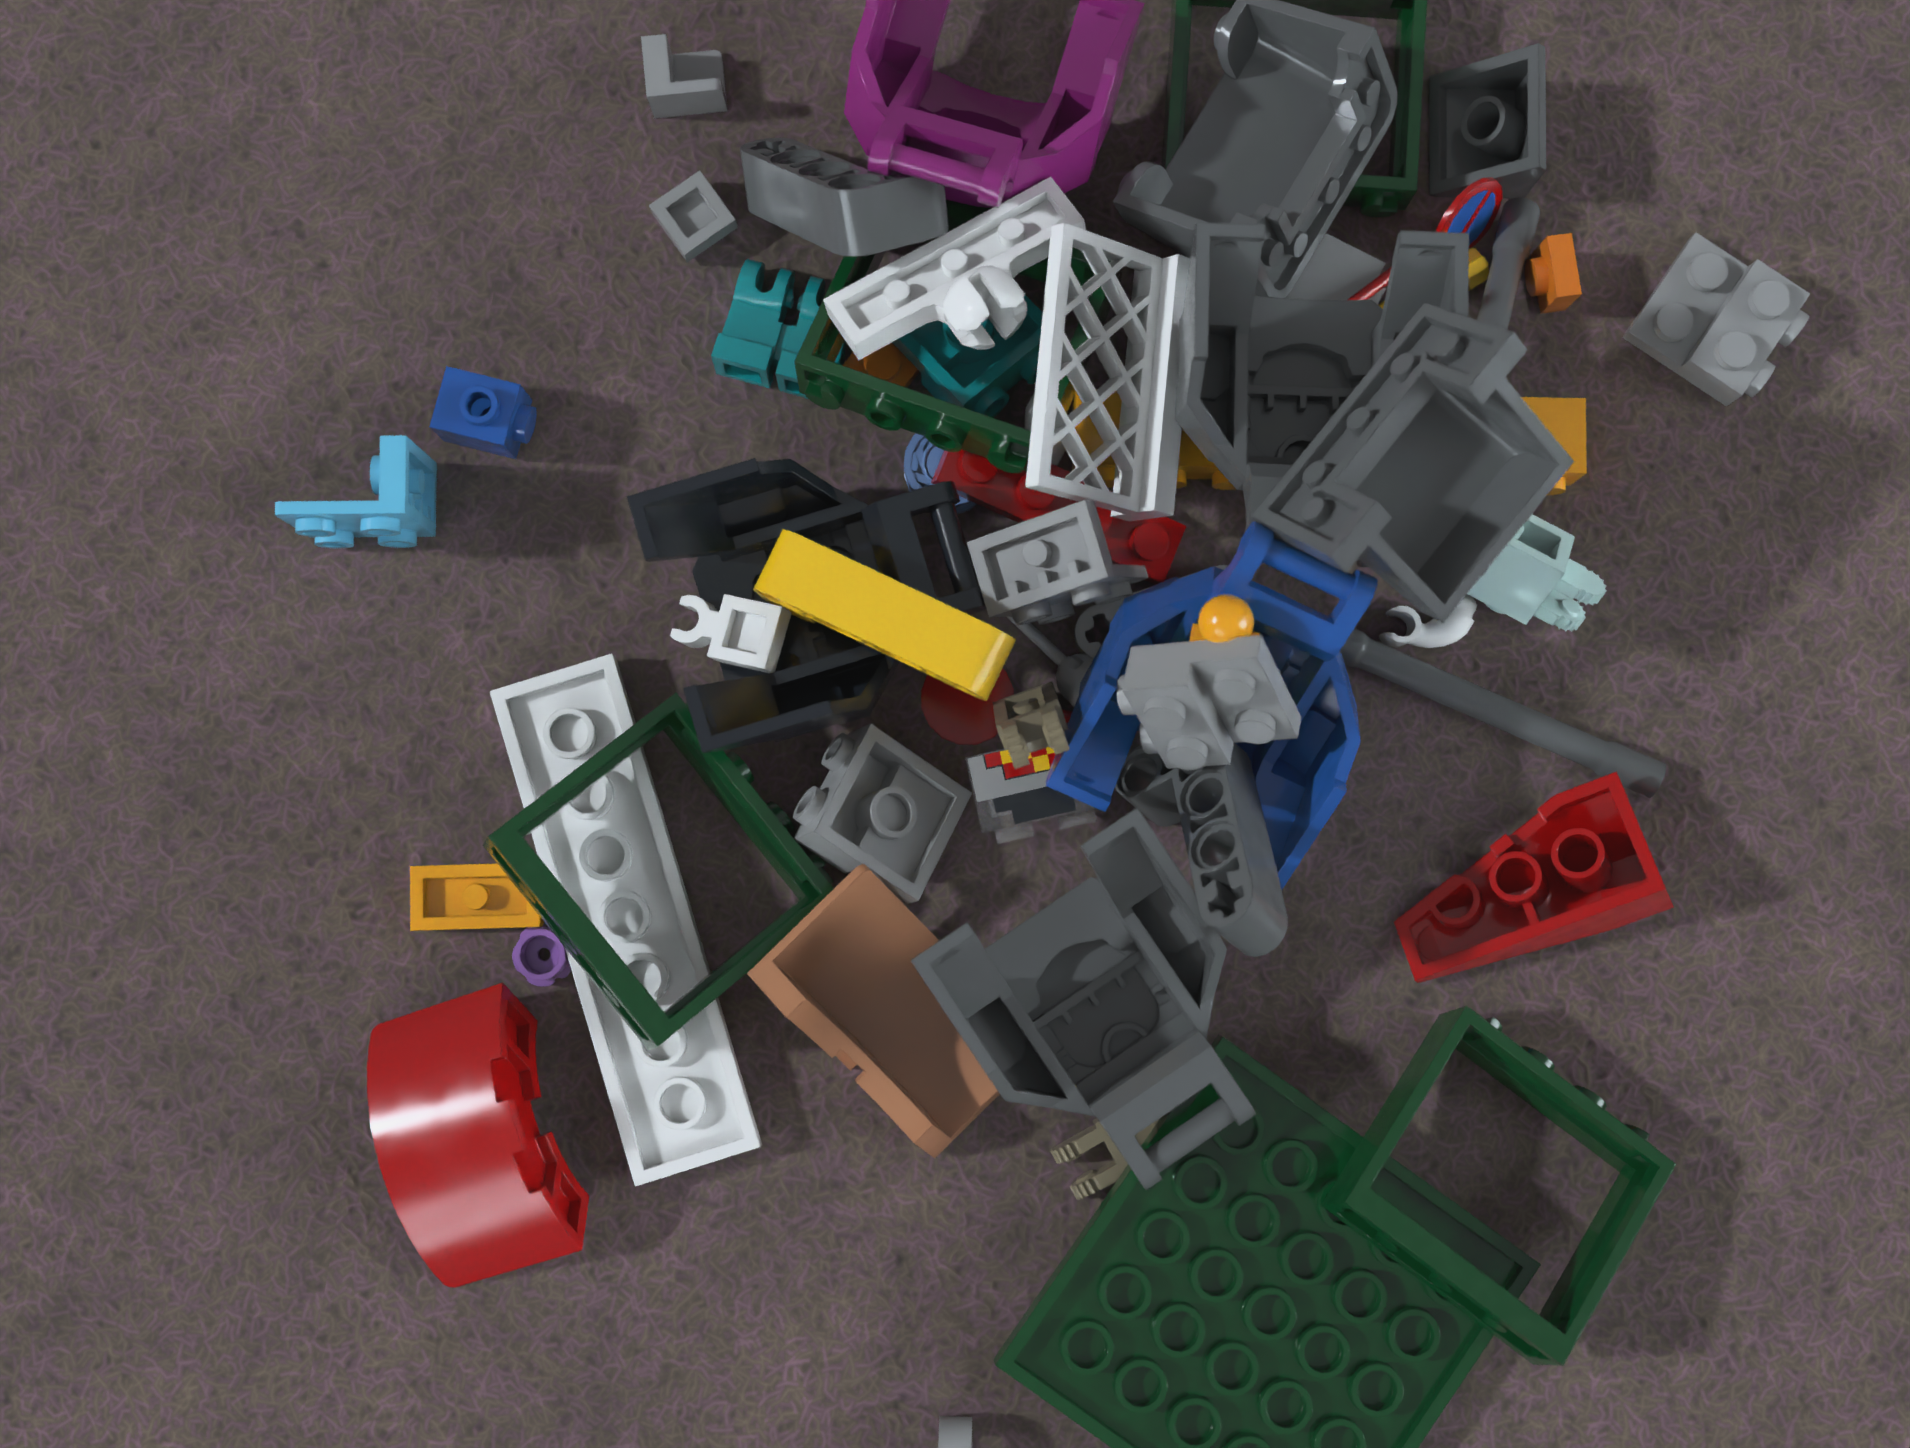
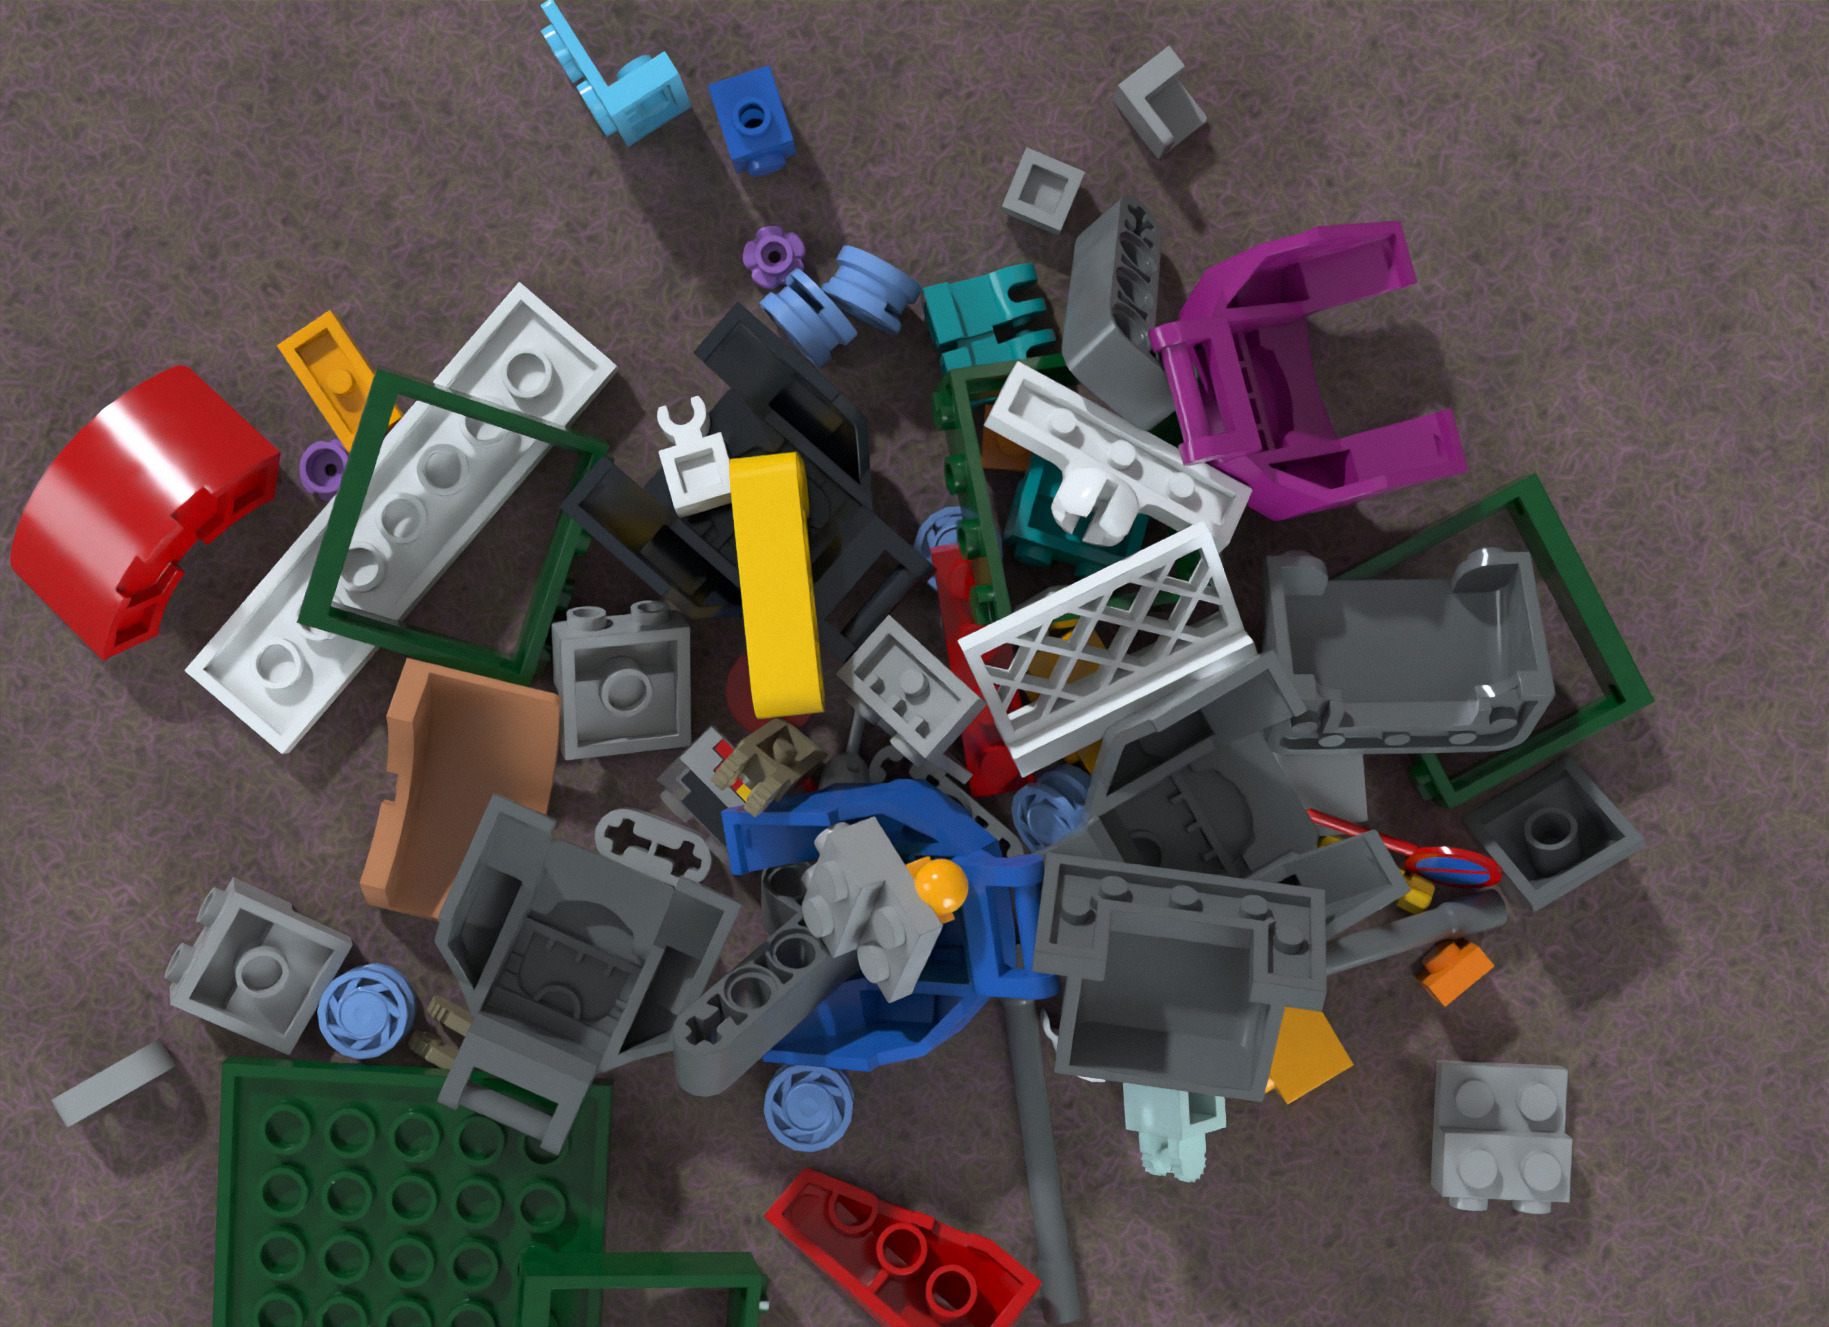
camera: 60 degrees right, 5 degrees up
(608, 485) = (757, 256): none -> medium lavender plate
(671, 458) = (809, 331): none -> medium blue wheel
(684, 402) = (871, 289): none -> medium blue wheel
(928, 1287) = (255, 966): none -> light grey plate
(1027, 867) = (659, 832): none -> light grey beam
(1027, 1214) = (367, 1010): none -> medium blue wheel
(1212, 515) = (1051, 806): none -> medium blue wheel
(1341, 881) = (808, 1106): none -> medium blue wheel

